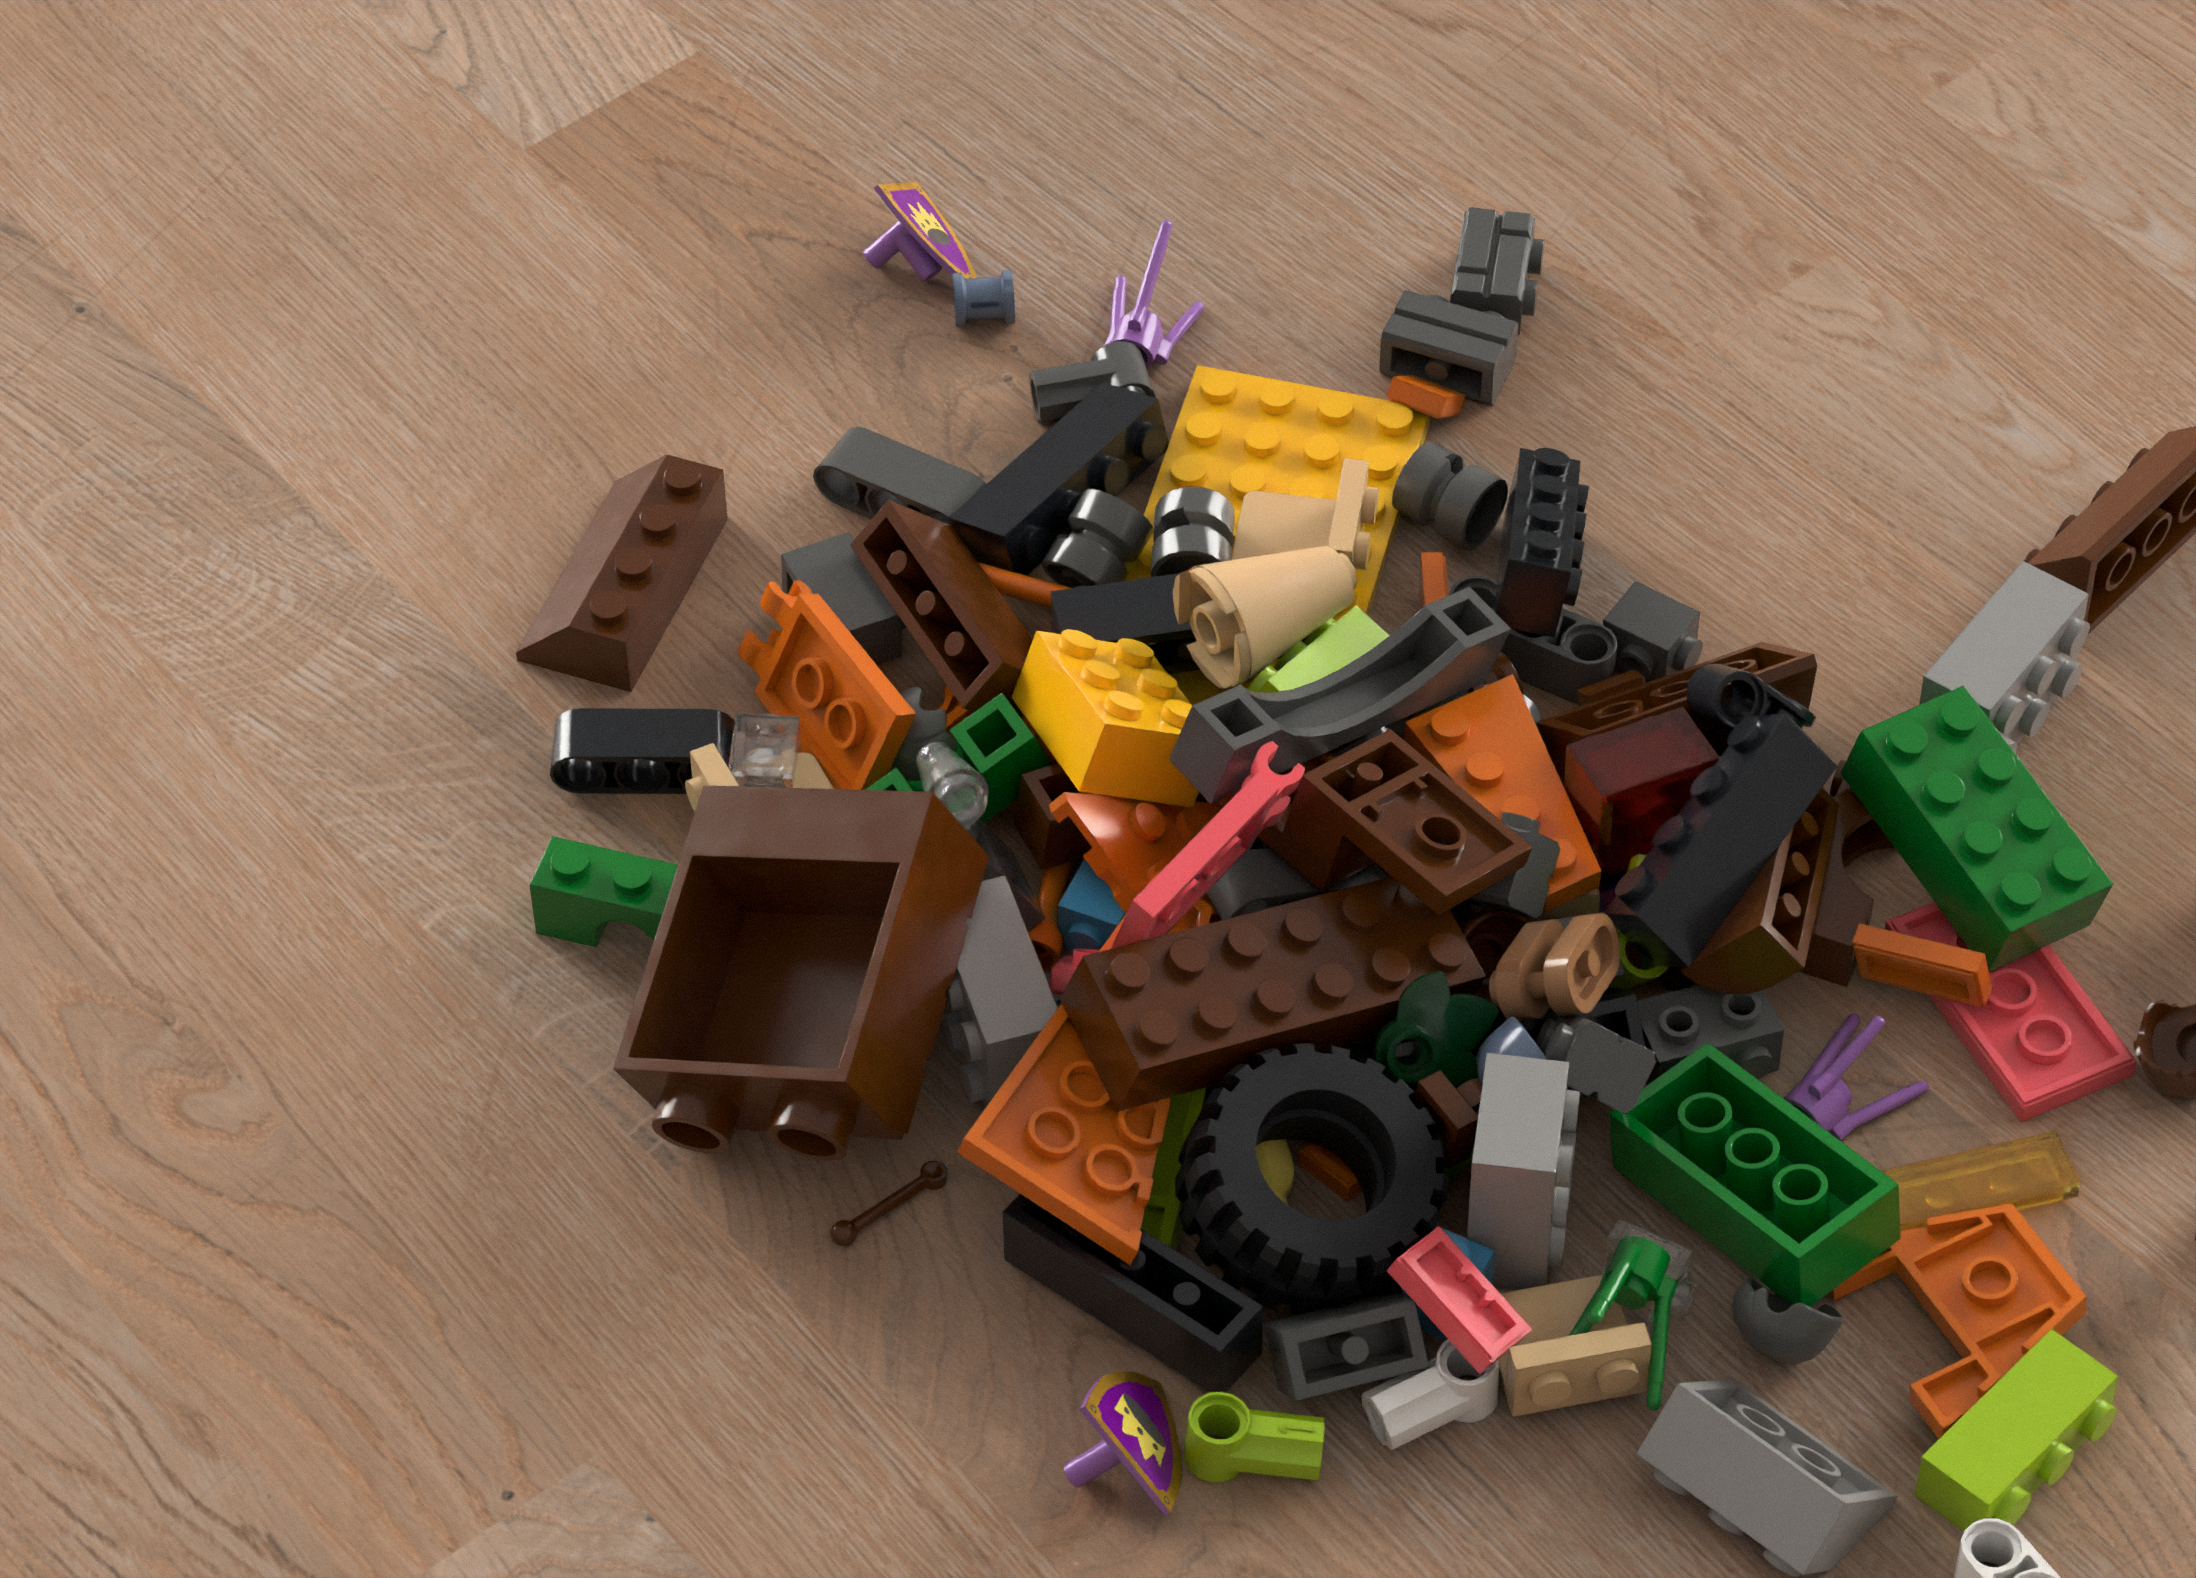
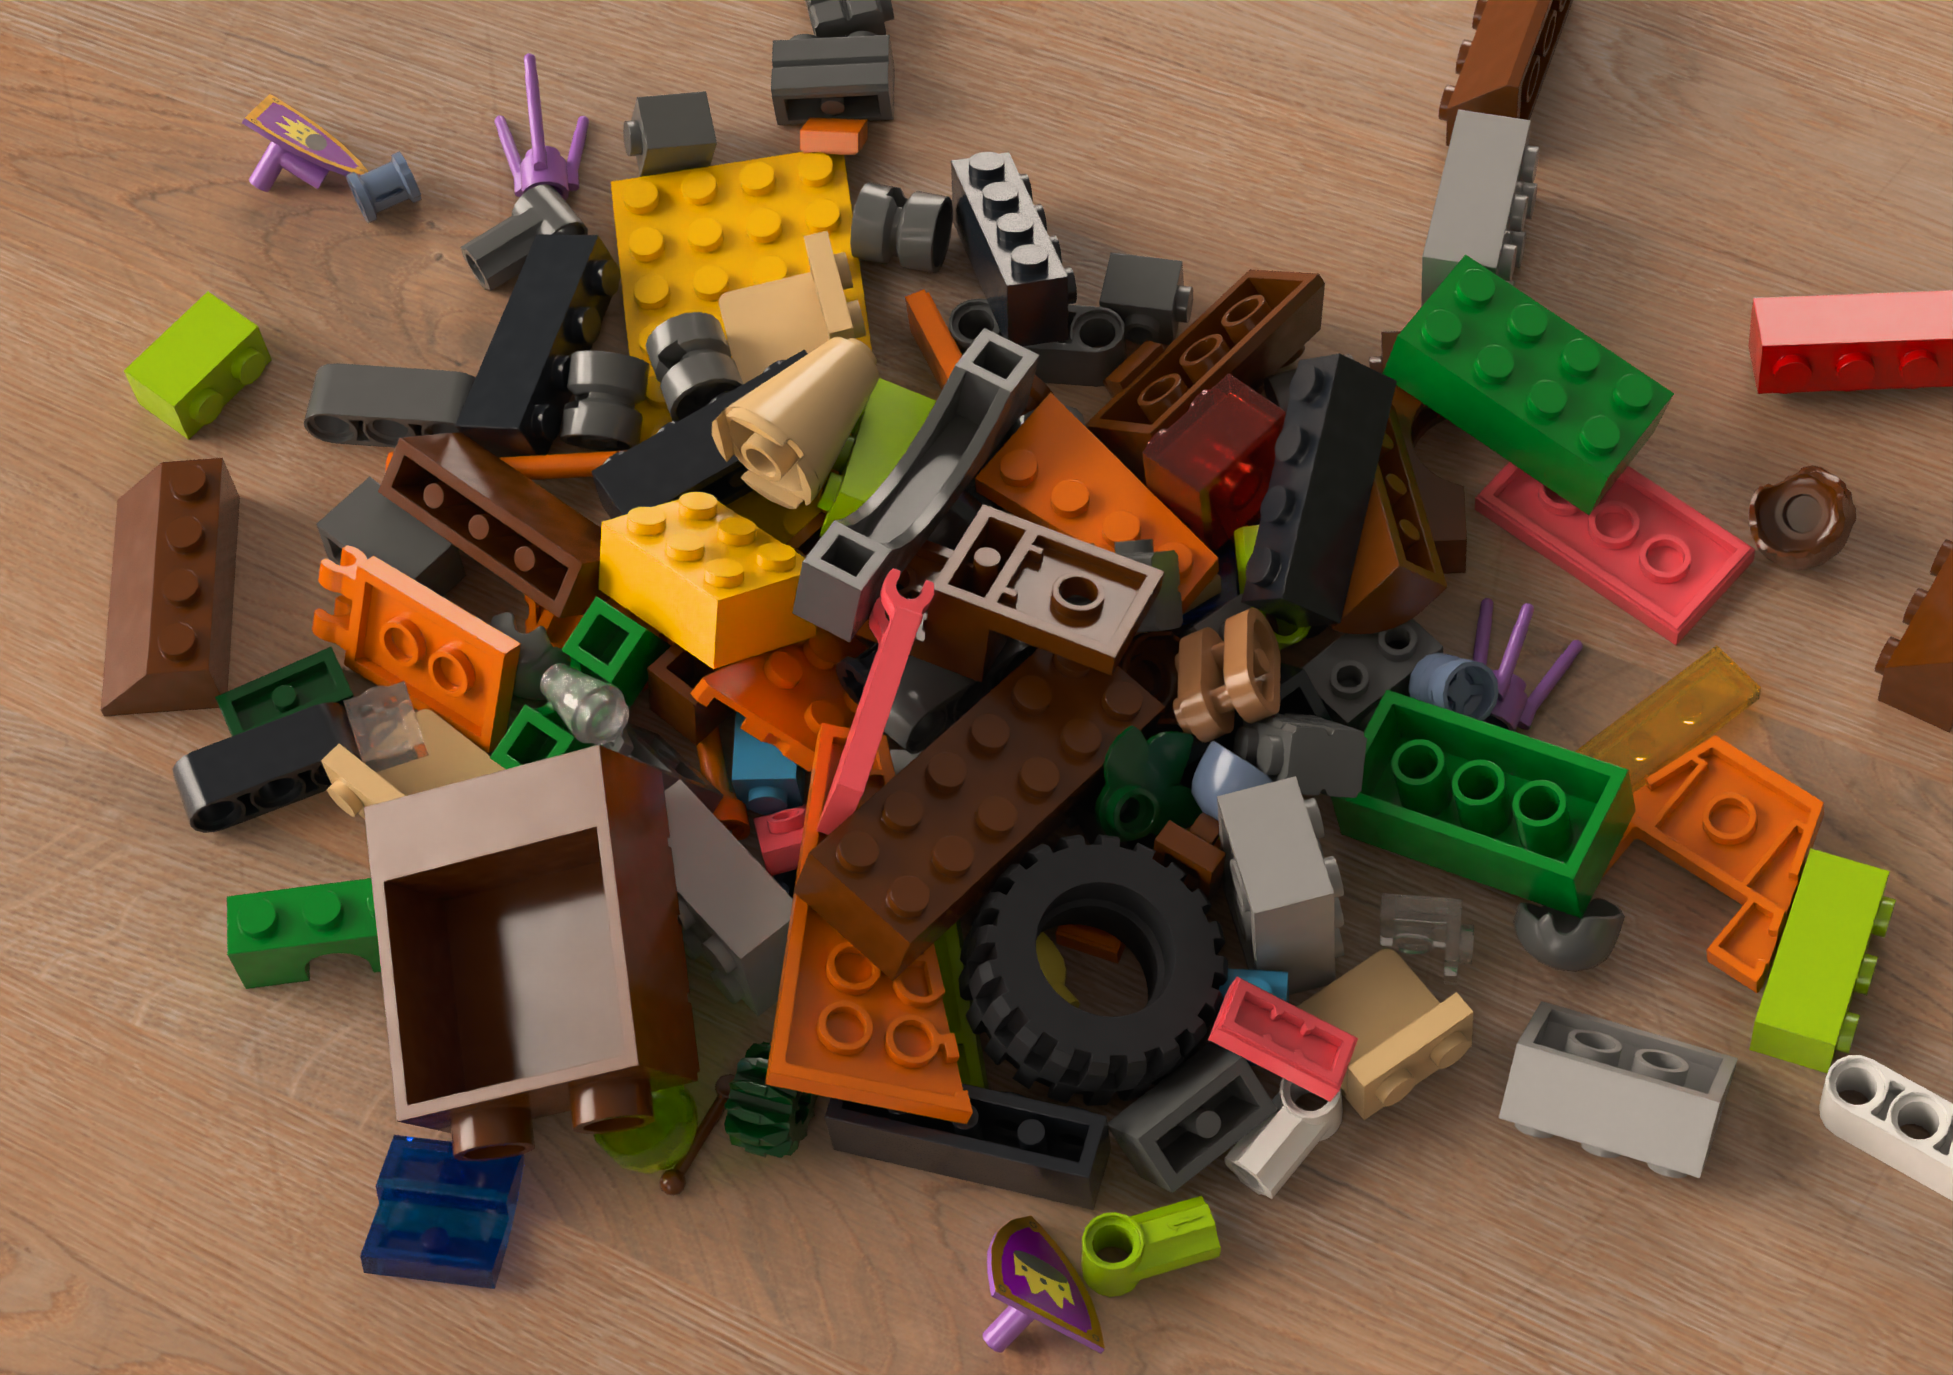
camera: 15 degrees left, 10 degrees up
(622, 1181) = (441, 1214): none -> clear blue slope
(695, 689) = (285, 691): none -> dark green plate
(741, 390) = (198, 365): none -> lime brick
(849, 1184) = (661, 1142): none -> clear neon green hair
(957, 1197) = (765, 1116): none -> dark green gear
(1271, 338) = (670, 133): none -> dark grey brick
(1632, 1280) = (1423, 952): green plant -> none
(1749, 698) = (1283, 347): black piece -> none
(1790, 1072) = (1455, 685): none -> sand blue wheel
(1922, 965) = (1533, 533): orange tile -> none

